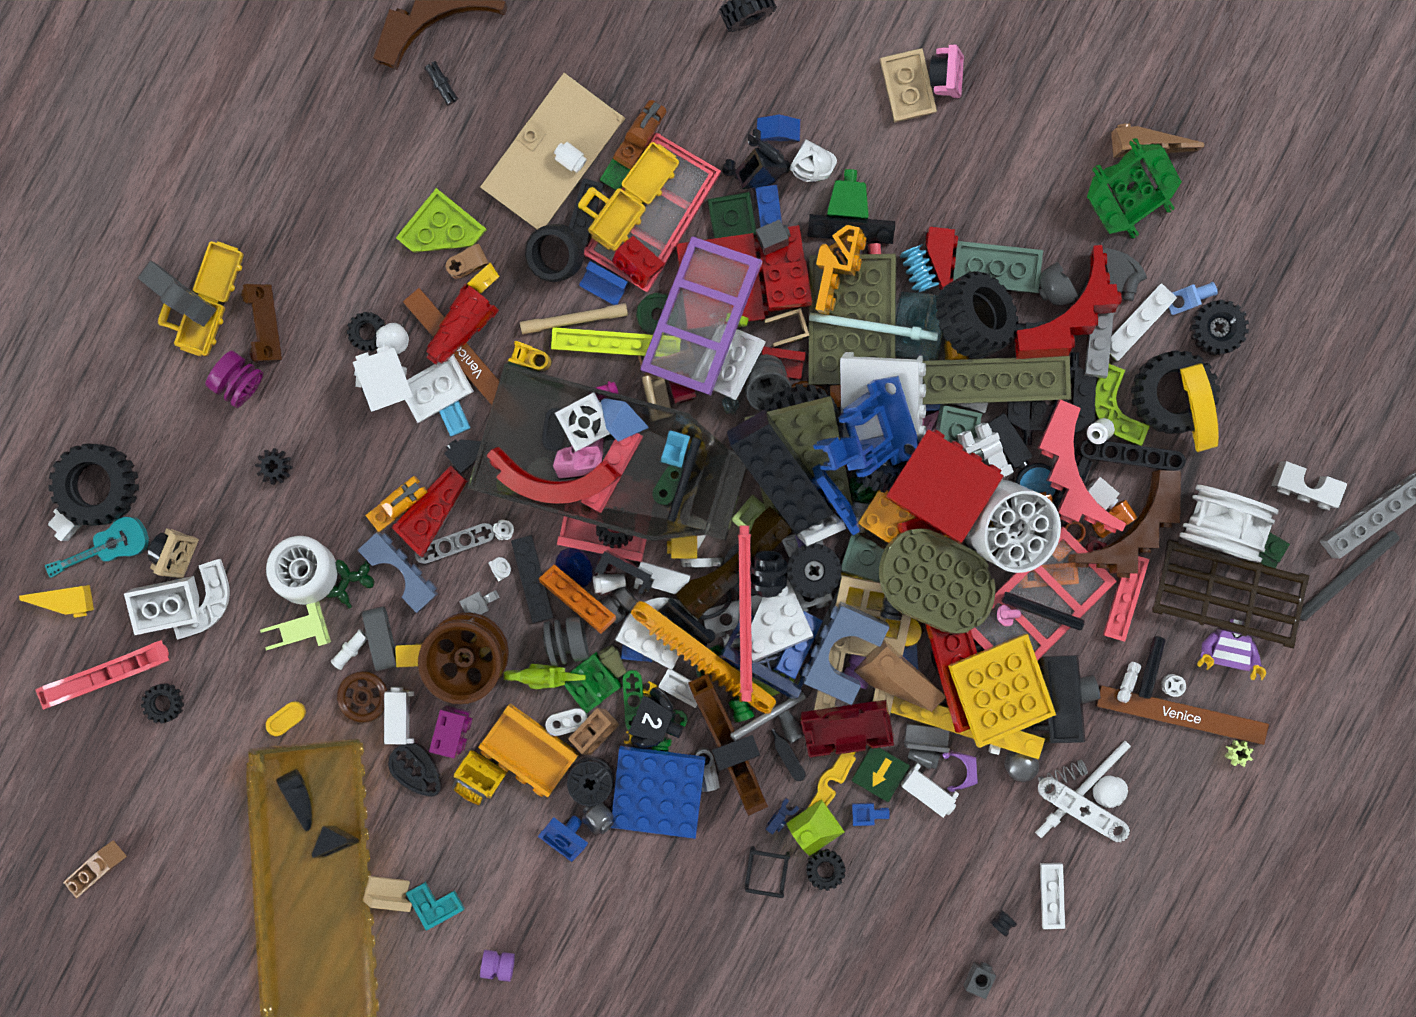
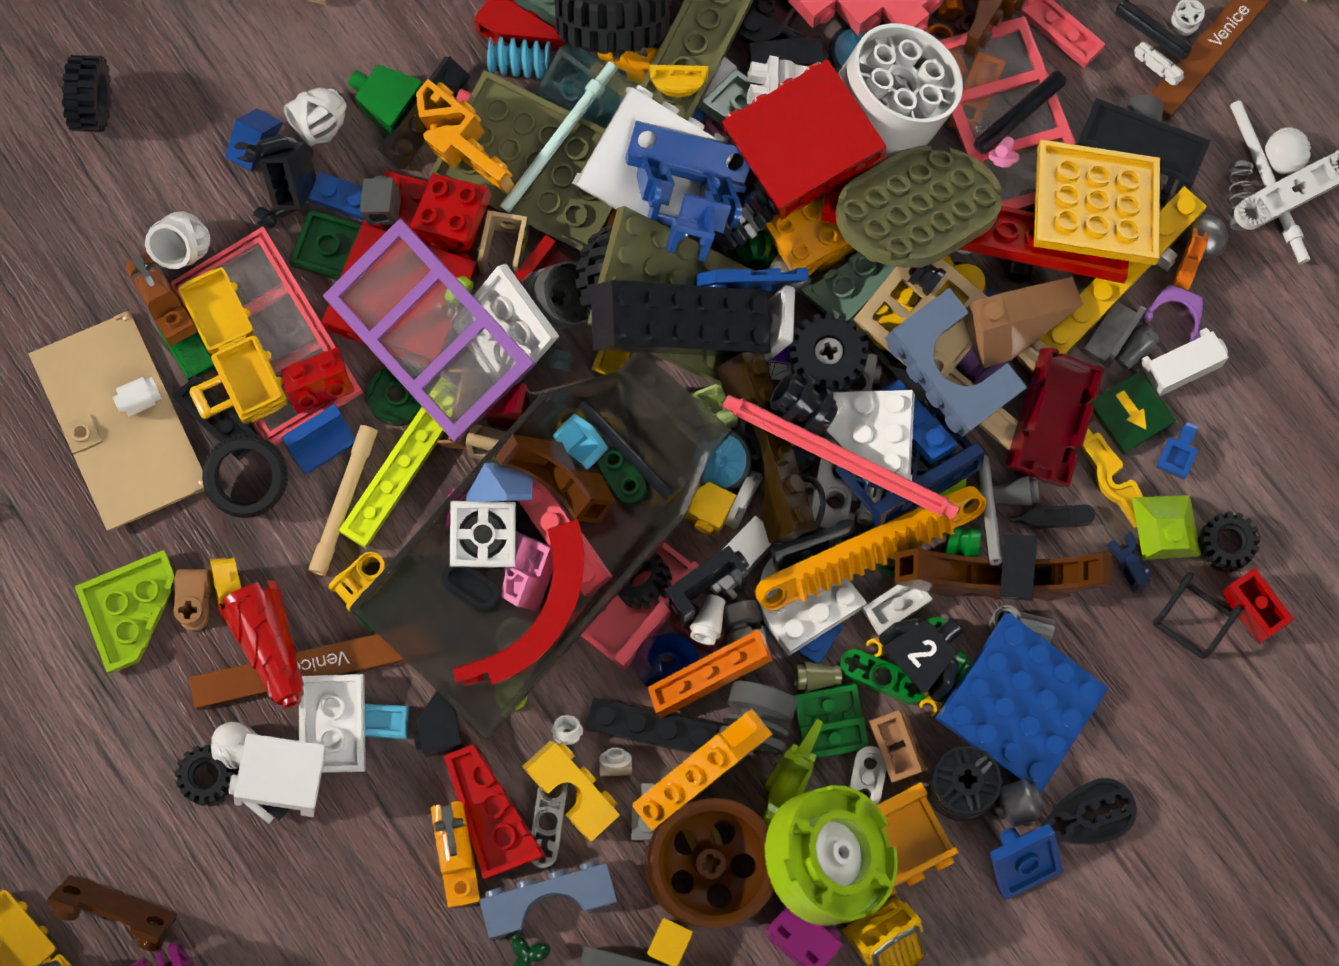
camera: 70 degrees left, 15 degrees down
(473, 536) = (592, 809): none -> yellow arch
(499, 727) = (830, 856): none -> lime piece
(513, 627) = (701, 769): none -> light orange panel
(609, 874) = (1089, 795): none -> black piece
(649, 438) = (548, 463): none -> reddish brown arch
(682, 123) = (177, 240): none -> white helmet
(718, 548) = (730, 464): none -> dark azure wheel
(790, 905) = (1261, 608): none -> red brick
(949, 383) = (678, 79): none -> yellow tile
(998, 764) = (1190, 260): none -> orange piece

